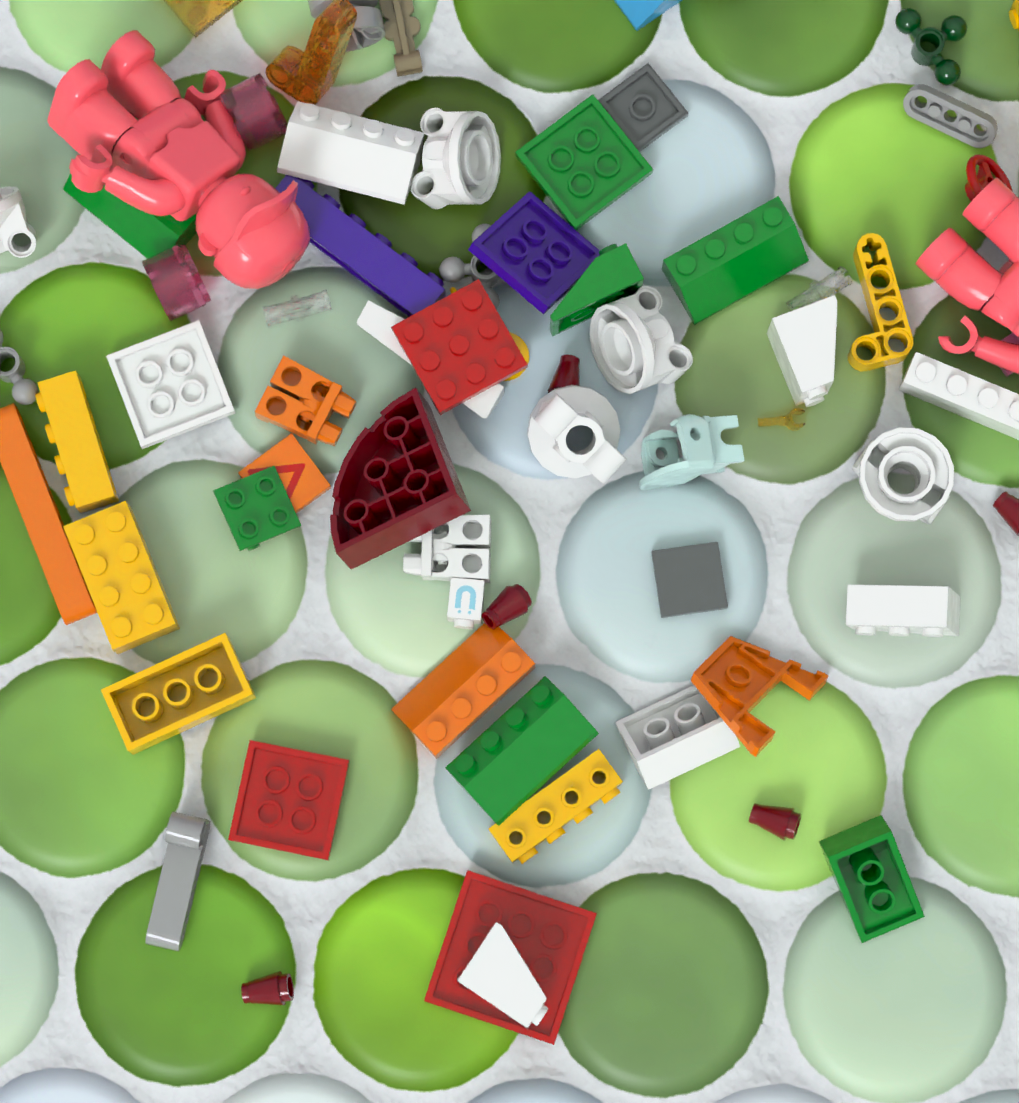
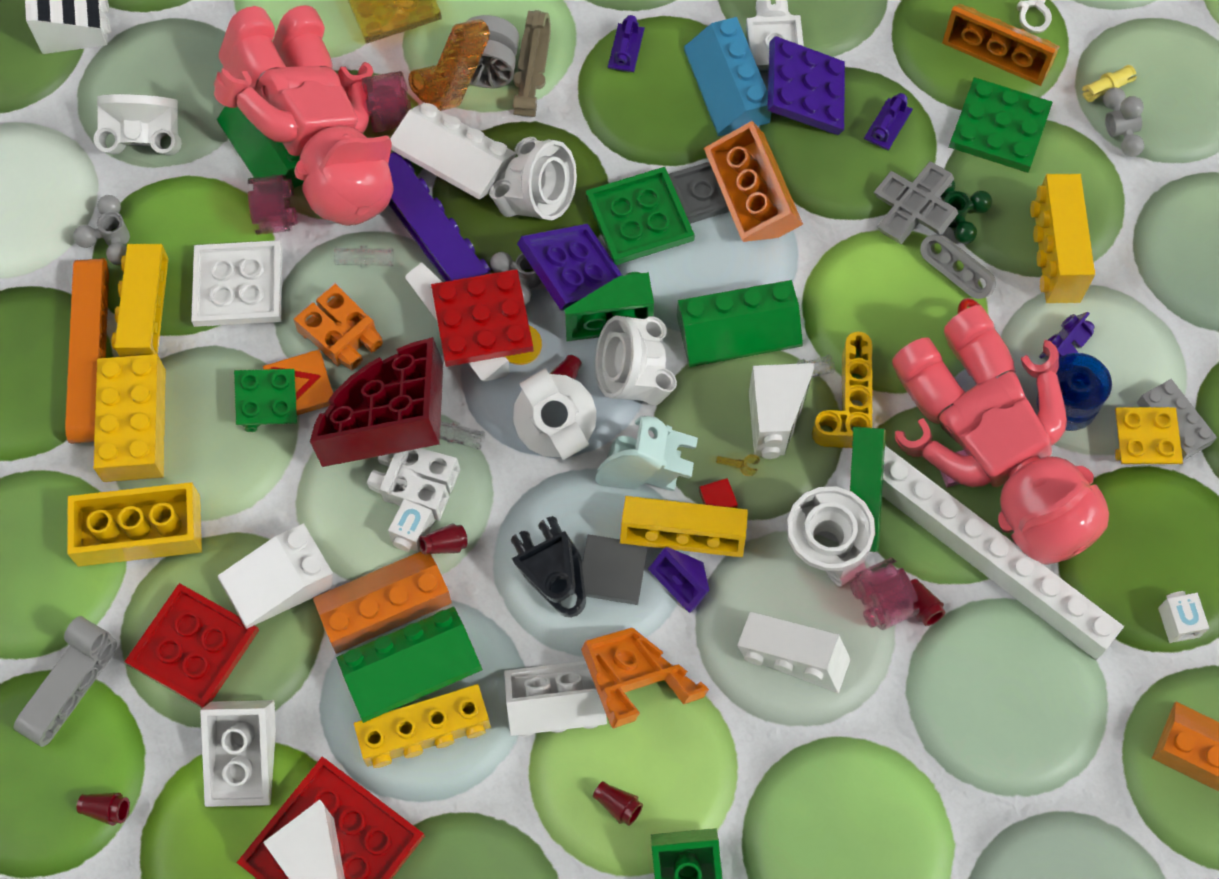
camera: 15 degrees right, 15 degrees down
(349, 702) = (277, 576): none -> white slope
(381, 892) = (238, 752): none -> white slope
(482, 482) = (458, 434): none -> clear pin
(631, 603) = (552, 566): none -> black piece
(697, 87) = (752, 184): none -> orange slope
(750, 512) = (679, 523): none -> yellow brick
(764, 565) = (681, 576): none -> dark purple slope
(773, 465) = (718, 494): none -> red tile
(884, 54) = (916, 202): none -> light grey plate
(925, 395) = (868, 471): none -> green tile
(979, 522) = (885, 594): none -> clear pink brick

